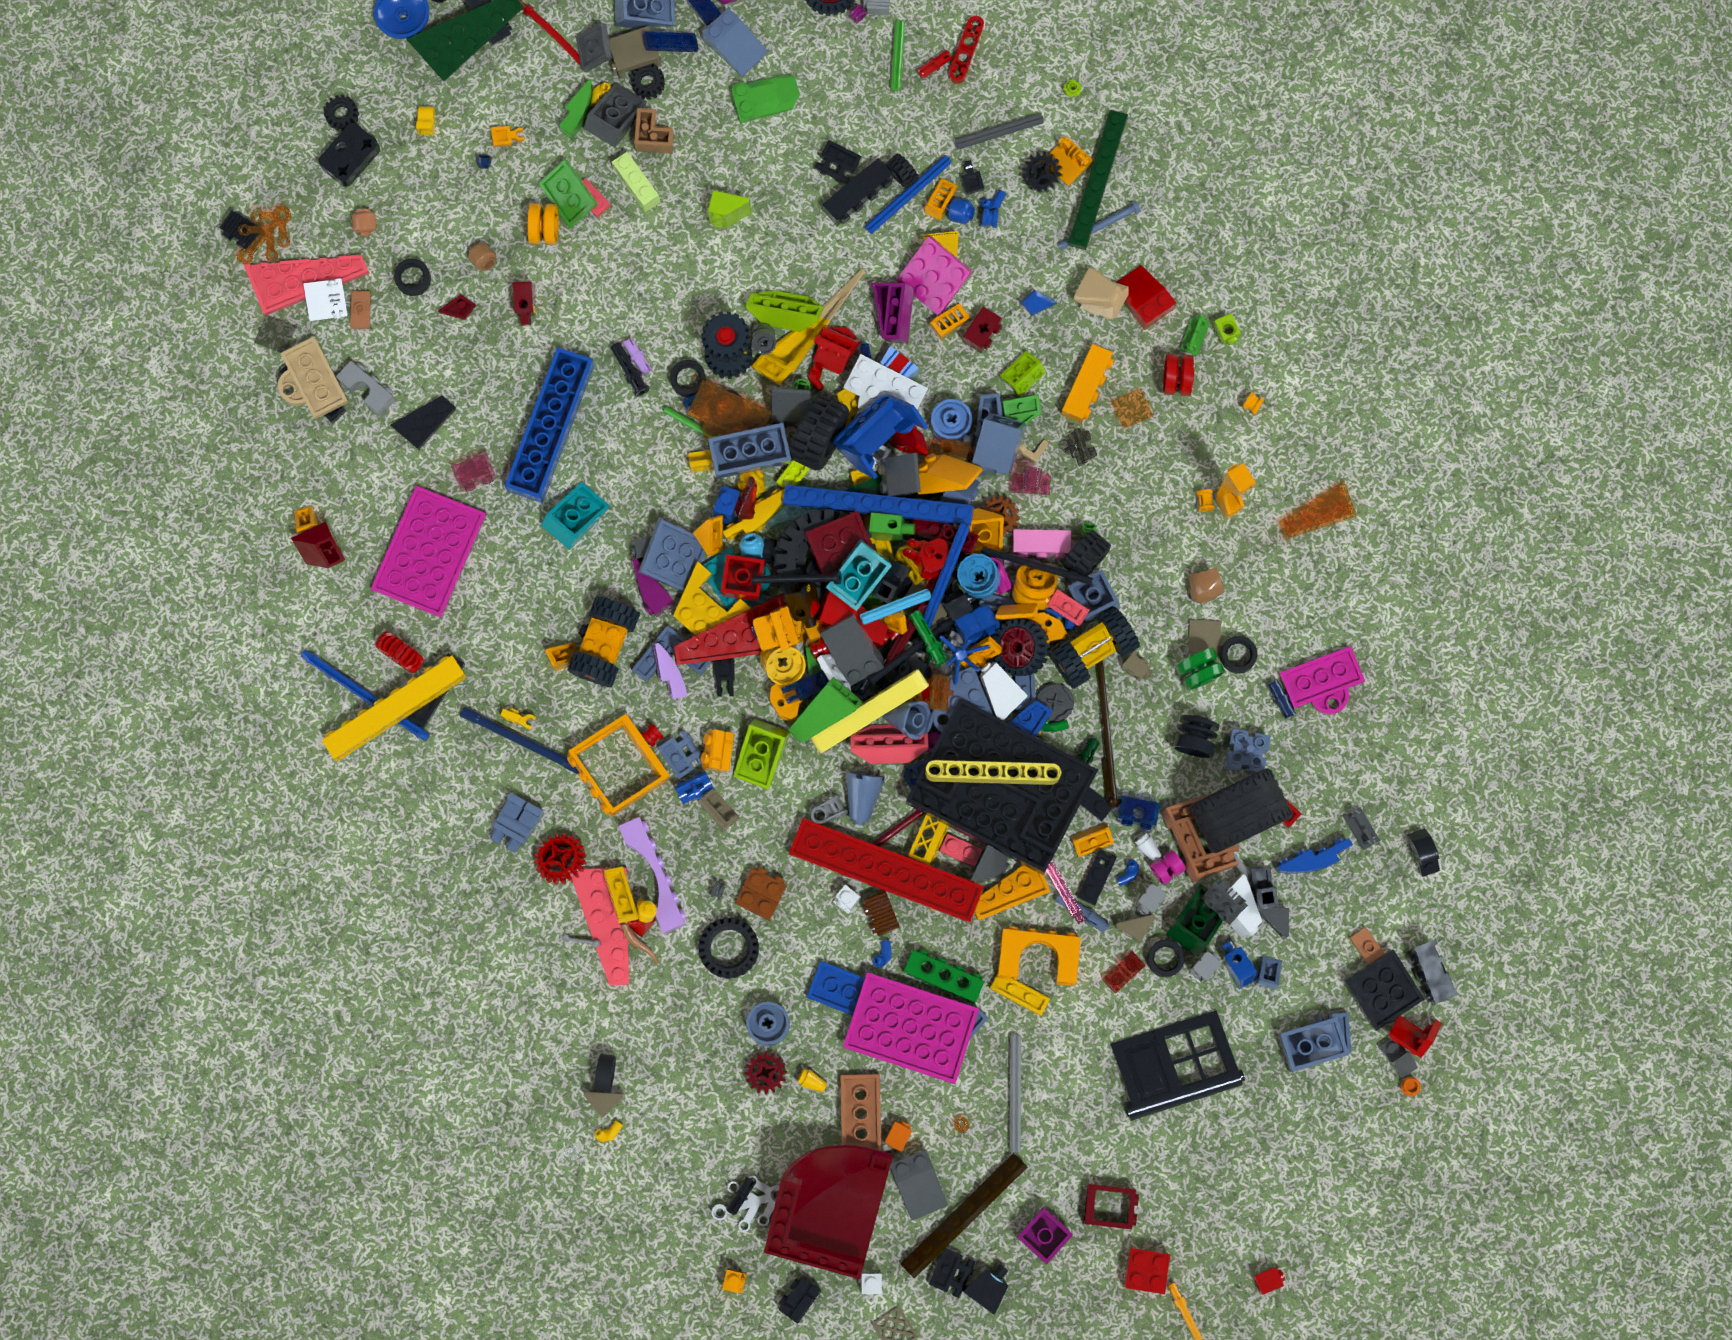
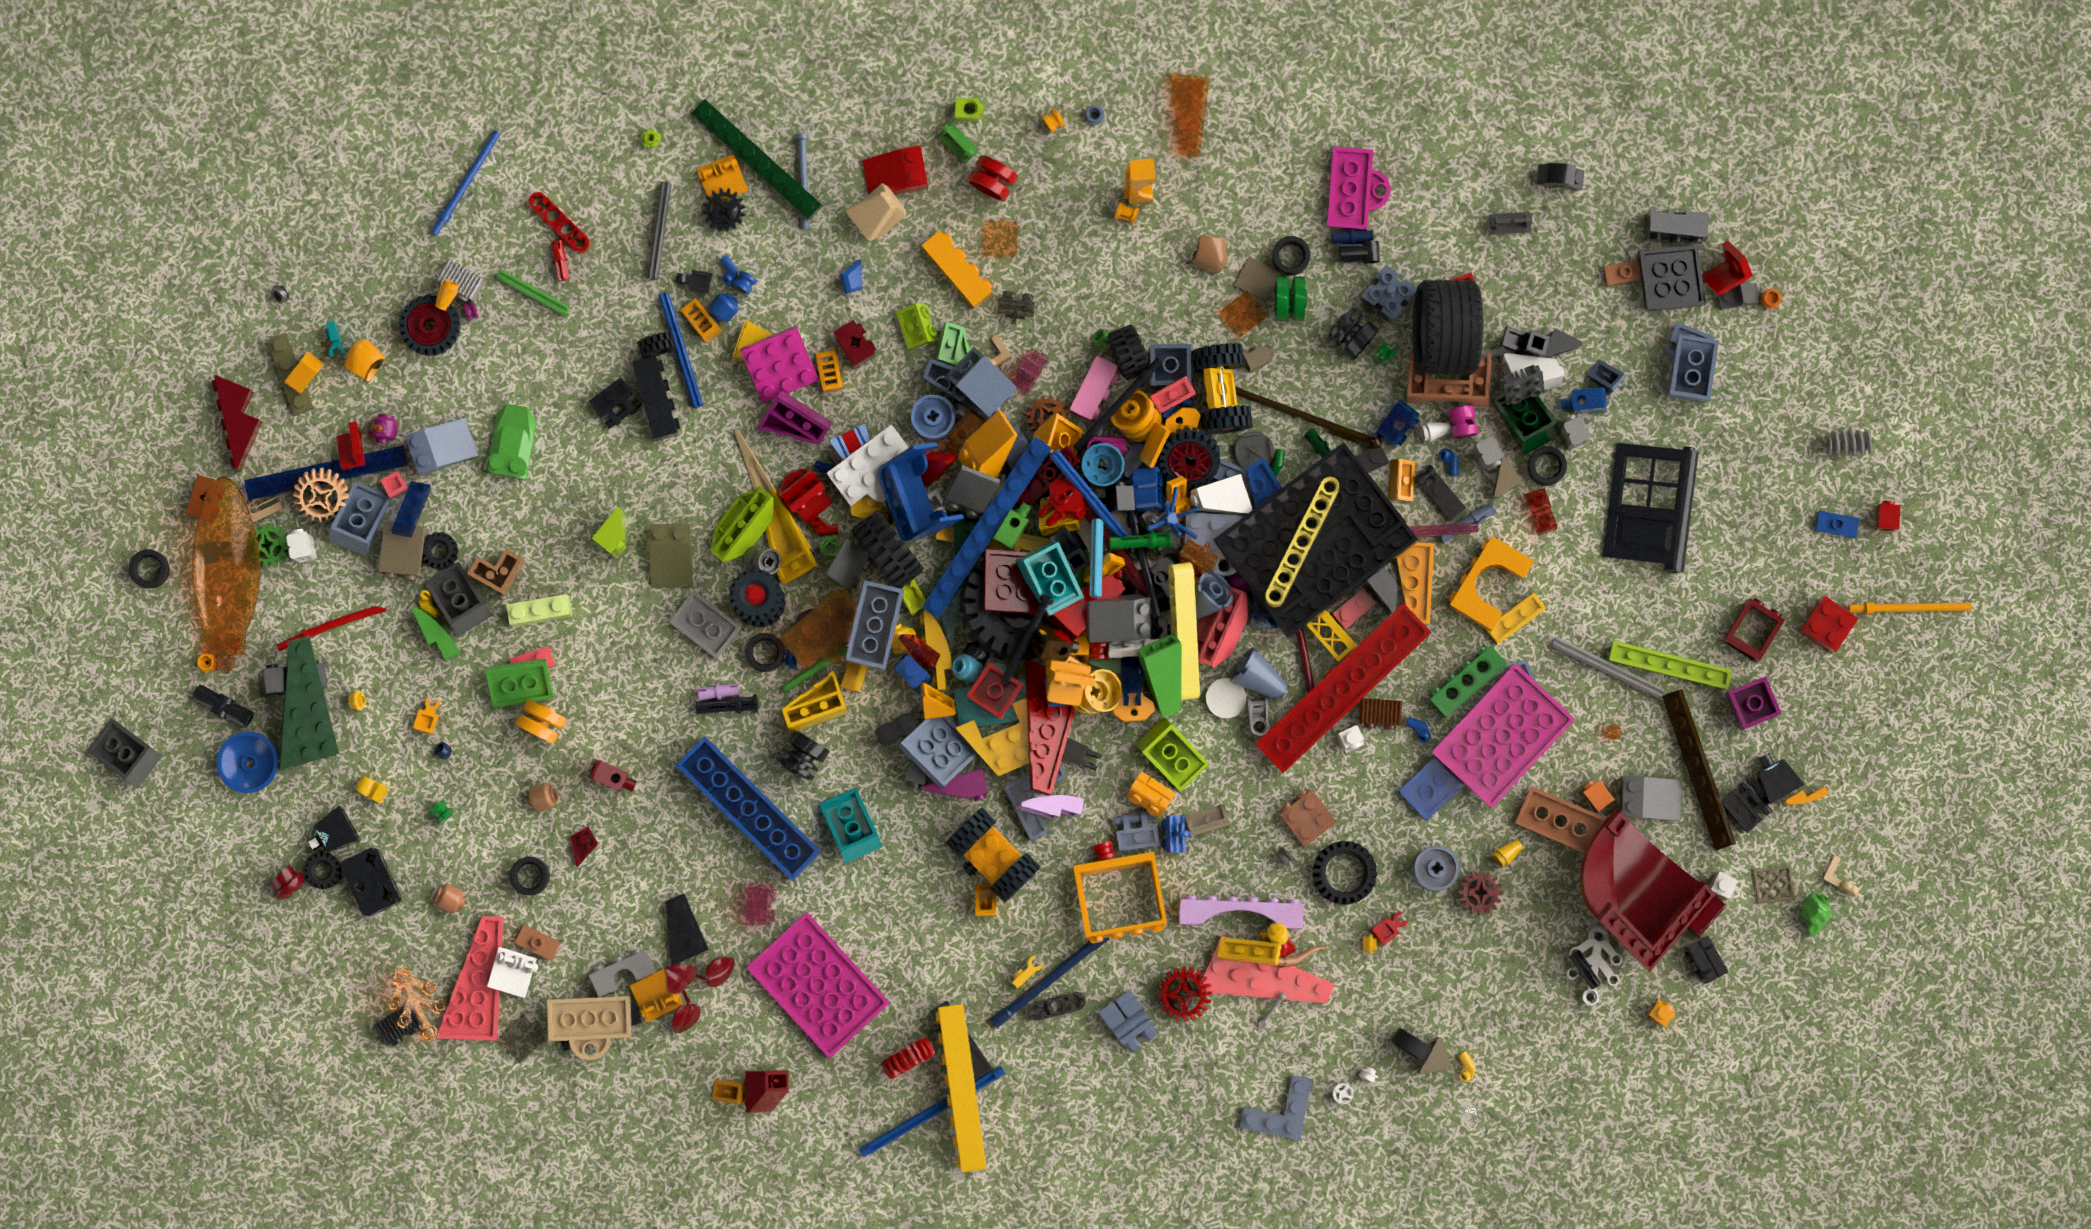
camera: 65 degrees left, 5 degrees up
(317, 88) = (286, 883): none -> dark red piece
(360, 425) = (654, 997): none -> light orange hinge
(377, 107) = (334, 831): none -> black torso
(377, 428) = (681, 975): none -> dark red plant
(432, 182) = (441, 812): none -> green wheel
(492, 1002) = (1285, 1125): none -> sand blue plate
(493, 74) = (357, 700): none -> yellow plate
(497, 743) = (1043, 1014): none -> black beam
(535, 1032) = (1345, 1095): none -> white wheel
(563, 1049) = (1367, 1074): none -> white plate
(593, 47) = (379, 587): dark grey plate -> none
(614, 447) = (802, 755): none -> black wheel
(662, 440) = (816, 706): none -> yellow wedge
(668, 511) = (892, 731): none -> black brick
(677, 998) = (1370, 944): none -> yellow plate
(685, 21) = (394, 484): none -> coral plate
(687, 319) = (705, 624): none -> light grey plate
(696, 1007) = (1386, 929): none -> red plate
(733, 265) = (670, 555): none -> olive slope
(830, 777) = (1225, 698): none -> white tile
(838, 1282) = (1707, 916): none -> dark red hinge
(981, 1317) = (1801, 798): none -> light orange slope
(1043, 1147) = (1670, 665): none -> lime plate
(1168, 638) = (1243, 314): none -> clear orange piece
(1193, 773) = (1384, 354): none -> green wheel
(1240, 1238) = (1837, 524): none -> blue plate
(1273, 716) = (1365, 252): none -> black piece
(1276, 429) = (1094, 108): none -> sand blue plate
(1307, 861) = (1518, 289): blue slope -> none
(1317, 1214) = (1849, 442): none -> light grey piece

